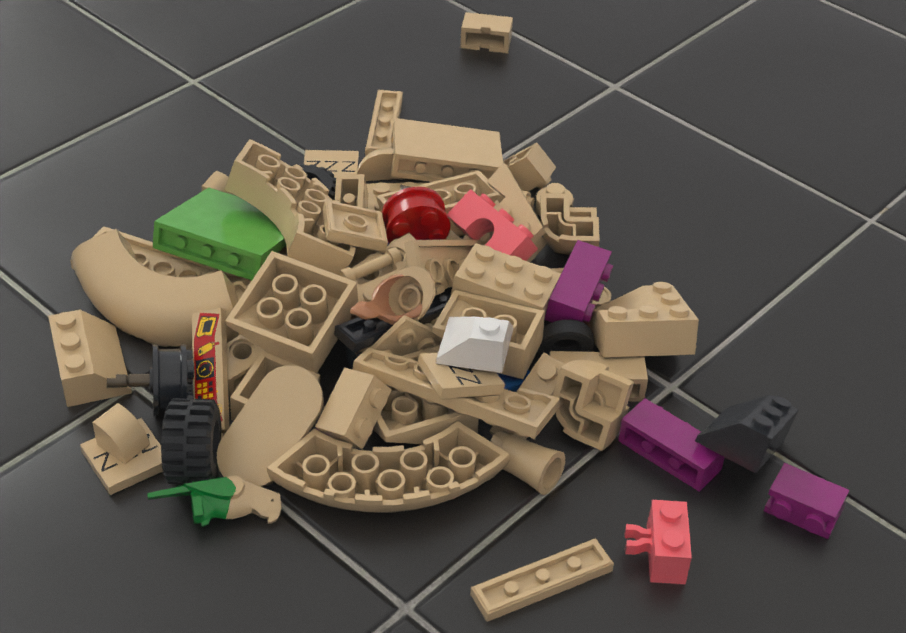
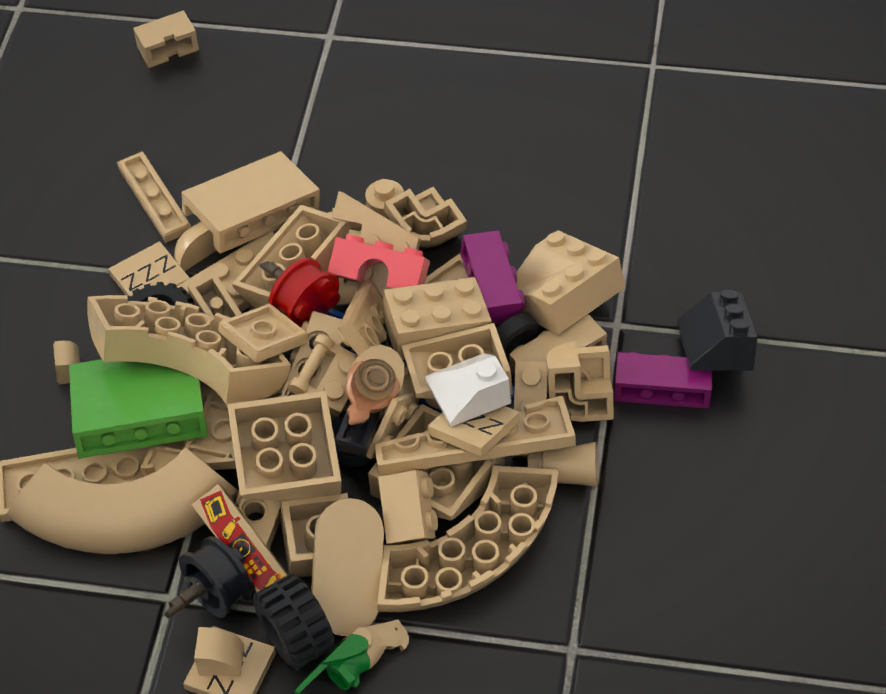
camera: 30 degrees left, 10 degrees up
(87, 356) = (108, 601): tan slope -> none
(531, 167) = (335, 173): tan slope -> none
(541, 579) = (654, 560): tan tile -> none
(664, 540) = (725, 469): coral brick -> none
(806, 500) = (797, 369): magenta brick -> none

